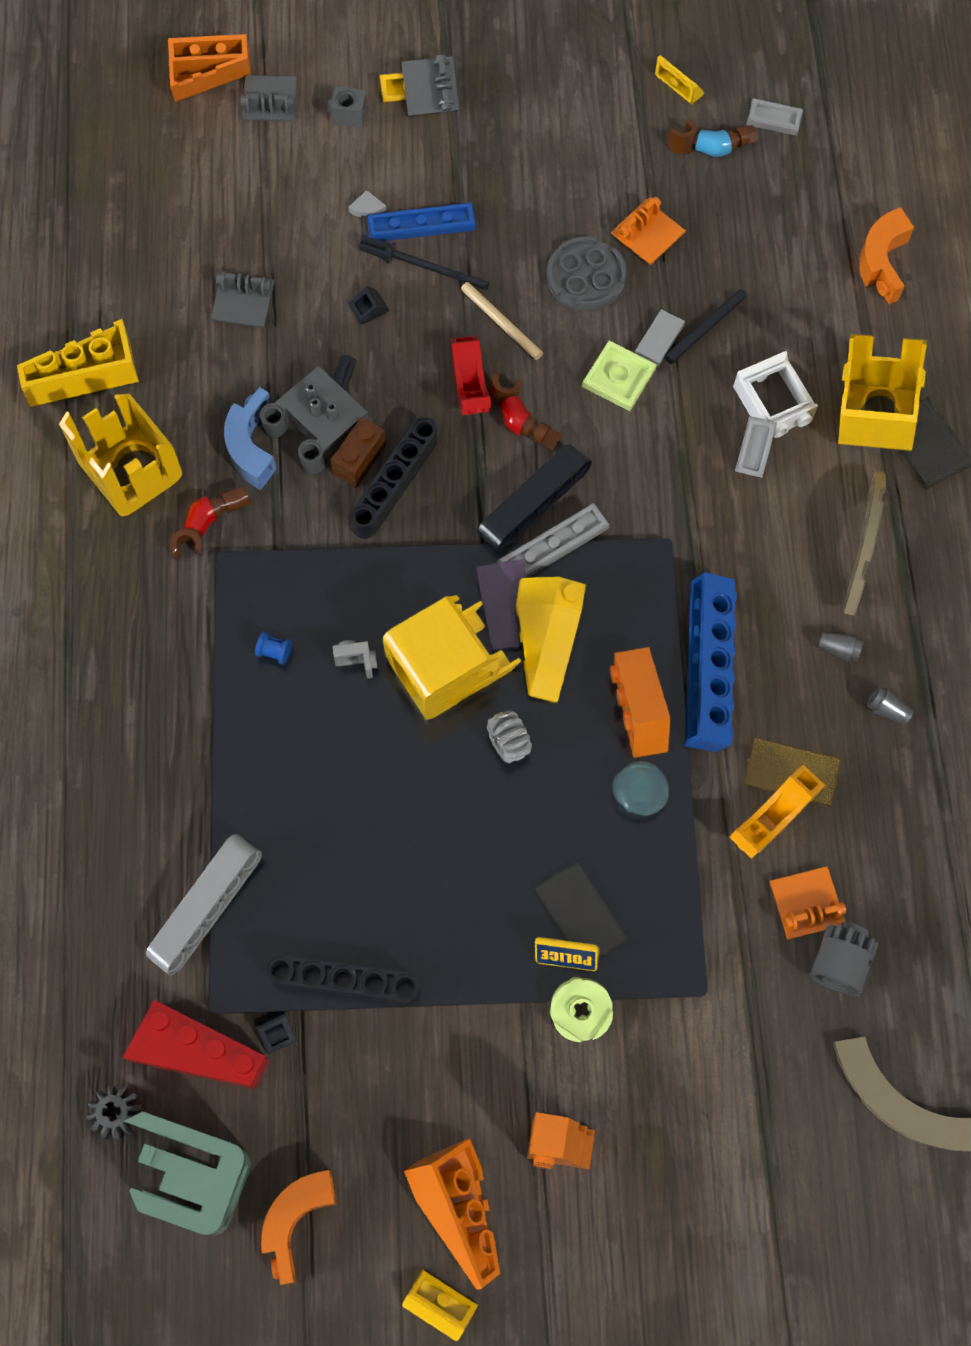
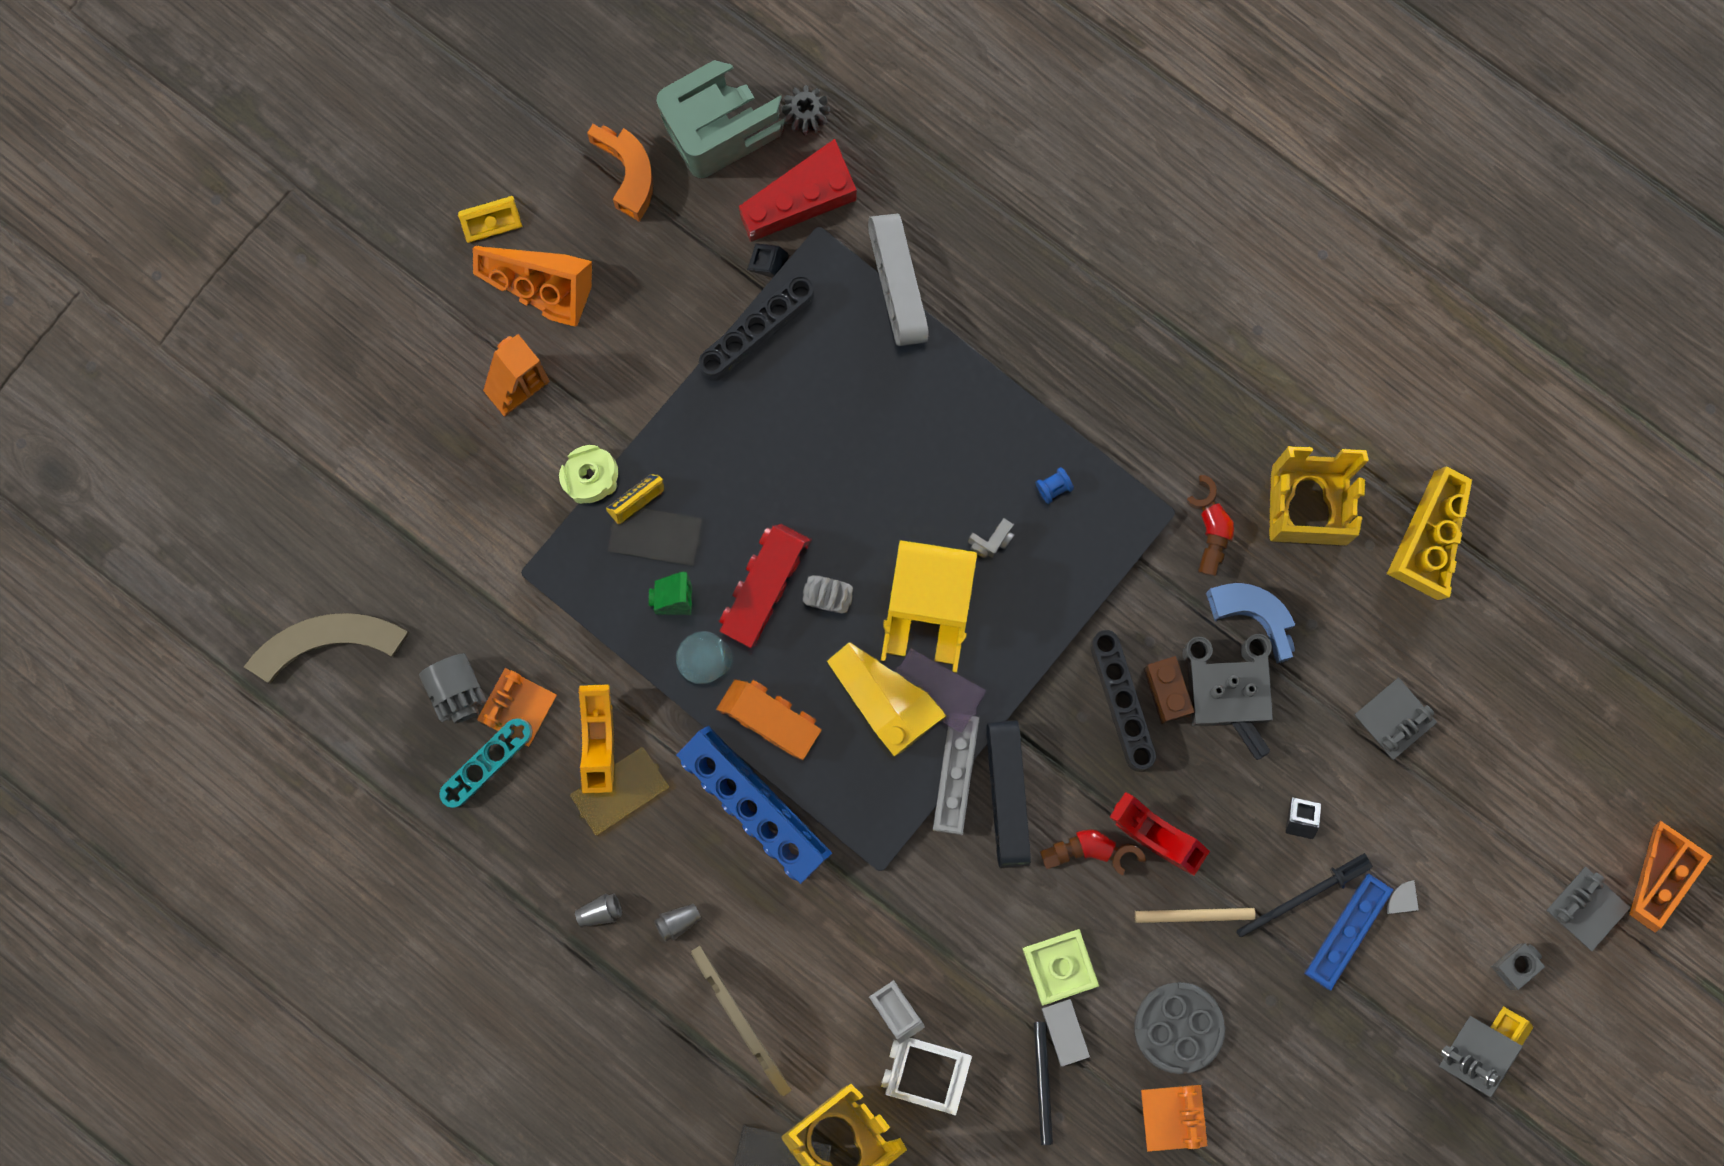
camera: 130 degrees right, 10 degrees up
(542, 790) = (763, 584): none -> red wedge
(619, 846) = (672, 595): none -> green slope
(870, 885) = (488, 765): none -> teal beam

